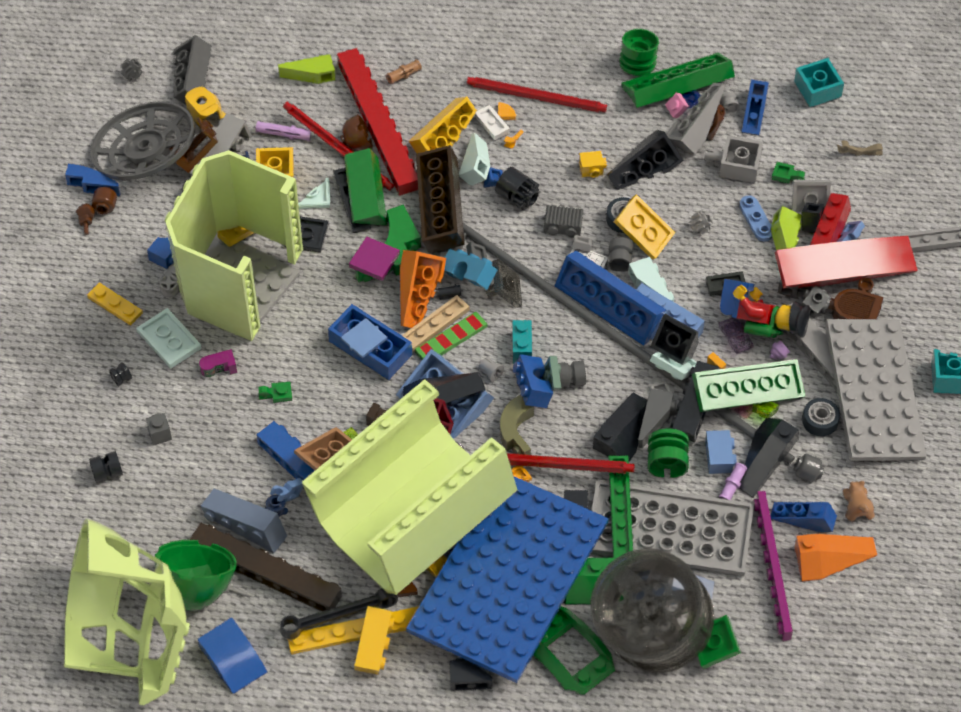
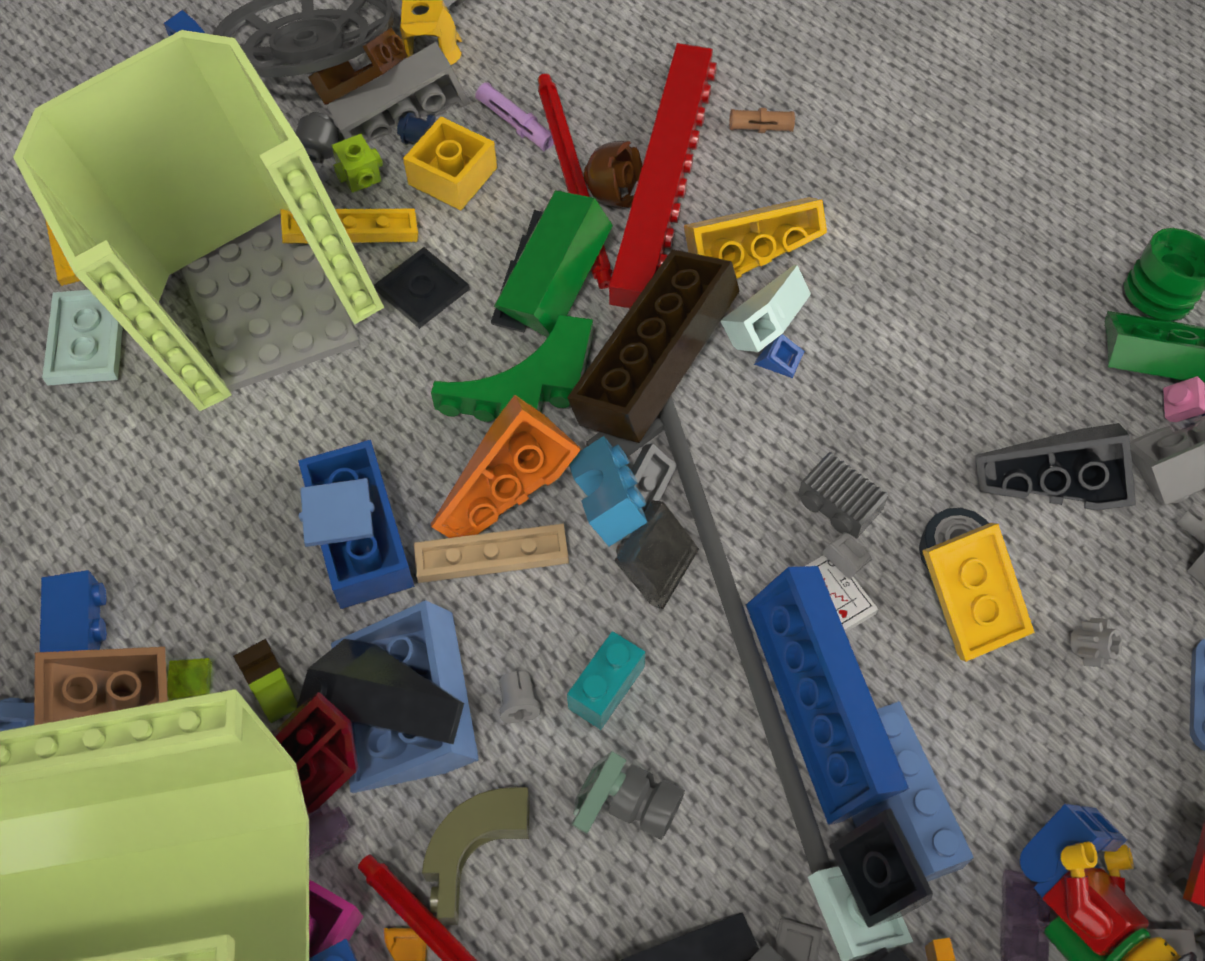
camera: 35 degrees right, 5 degrees up
(218, 363) = (114, 417): magenta leg -> none
(279, 392) = (158, 524): green plate -> none
(311, 70) = (626, 51): lime slope -> none
(318, 197) = (484, 241): light aqua tile -> none
(374, 258) = (471, 383): magenta tile -> none
(449, 292) = (559, 511): black pin -> none
(453, 336) = (503, 594): bright green tile -> none
(492, 122) = (842, 266): white plate -> none
(506, 112) = (877, 260): light orange tile -> none
(510, 142) = (851, 313): light orange hand -> none
(517, 188) = (800, 394): black gear -> none
(529, 374) = (543, 802): blue arch -> none
(540, 95) = (953, 261): red piece -> none
(592, 164) = (962, 422): yellow brick -> none
(620, 254) = (901, 617): dark grey wheel -> none
(647, 272) = (922, 687): light aqua slope -> none
(716, 282) = (1055, 786): pearl dark grey plate -> none

